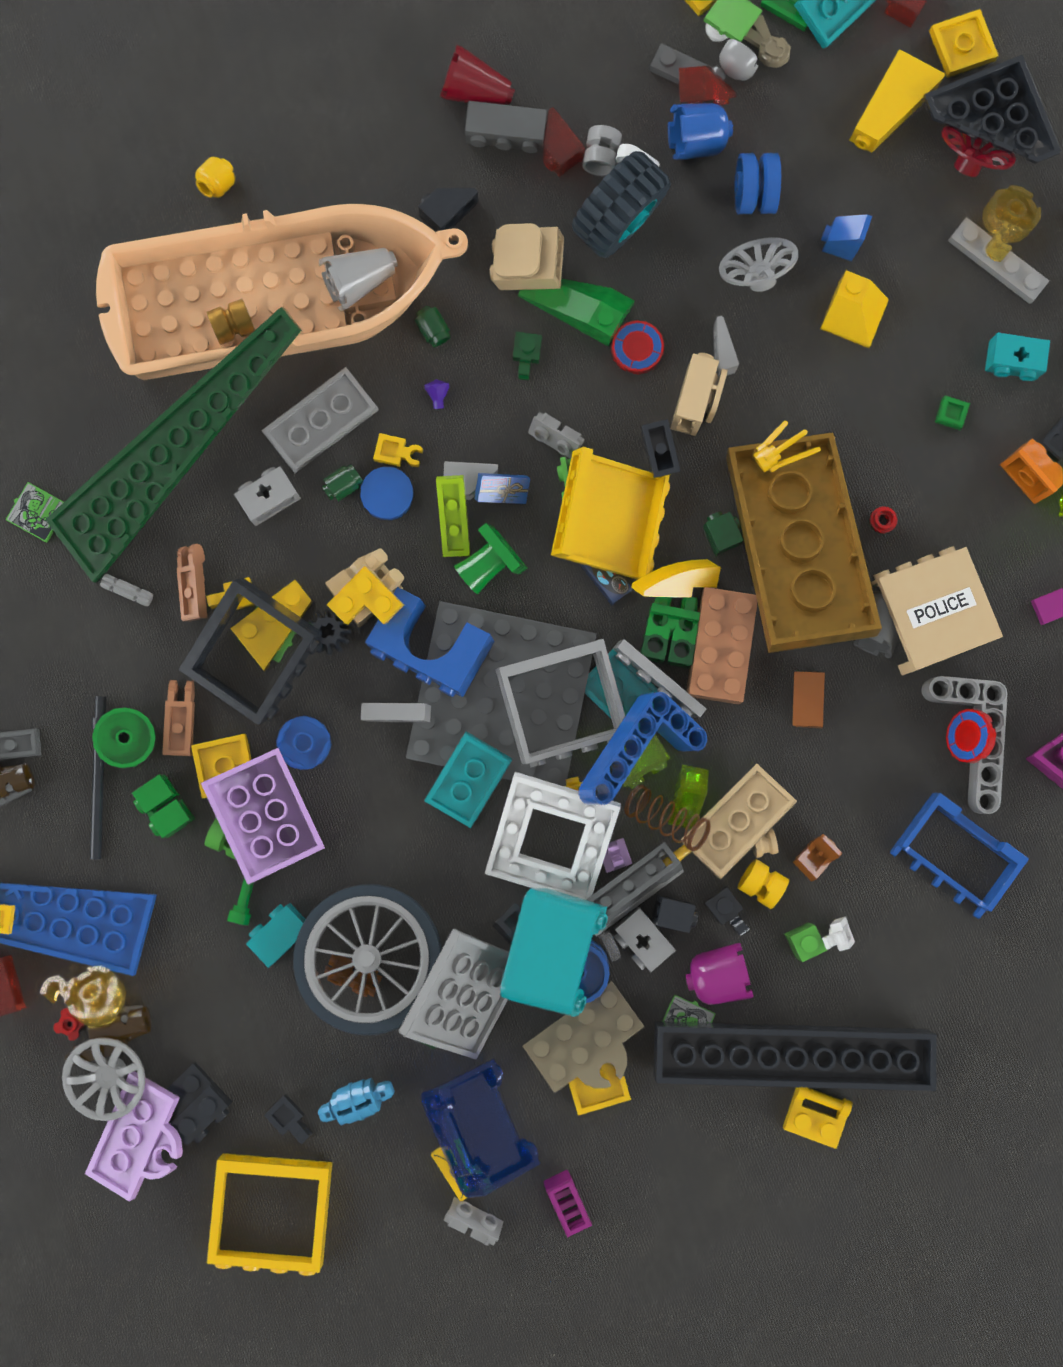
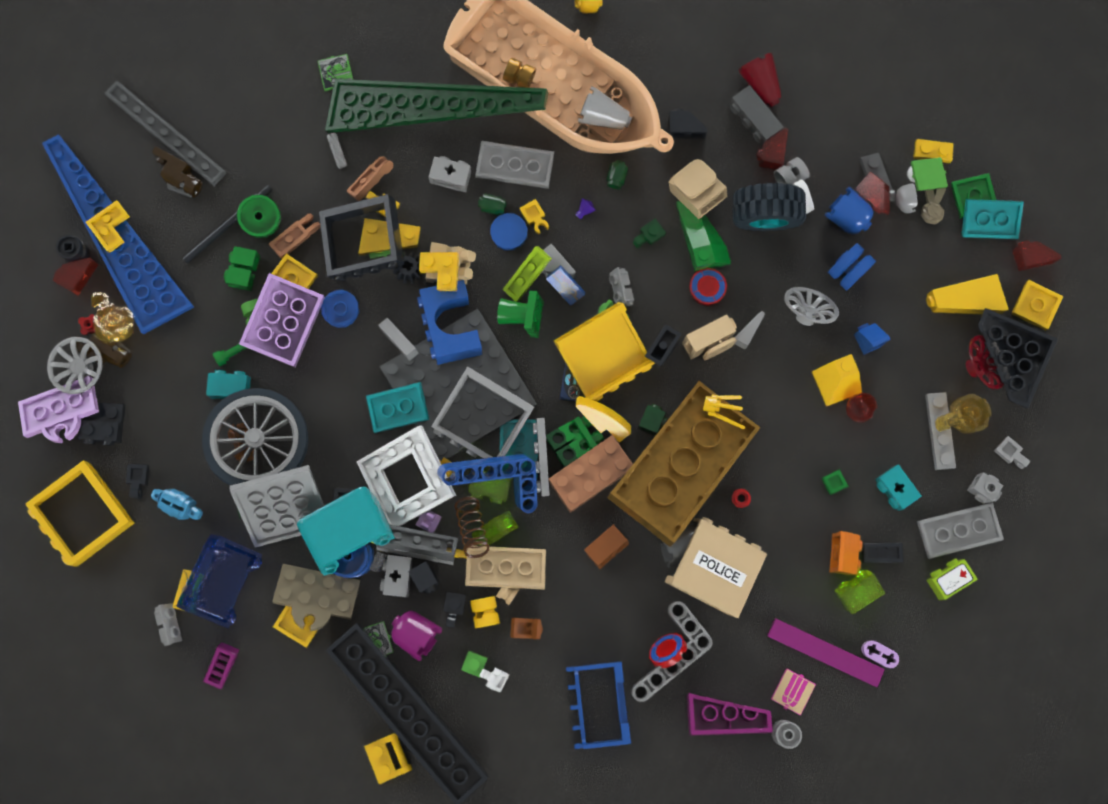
camera: 50 degrees right, 5 degrees down
(905, 313) = (861, 407): none -> clear red hair

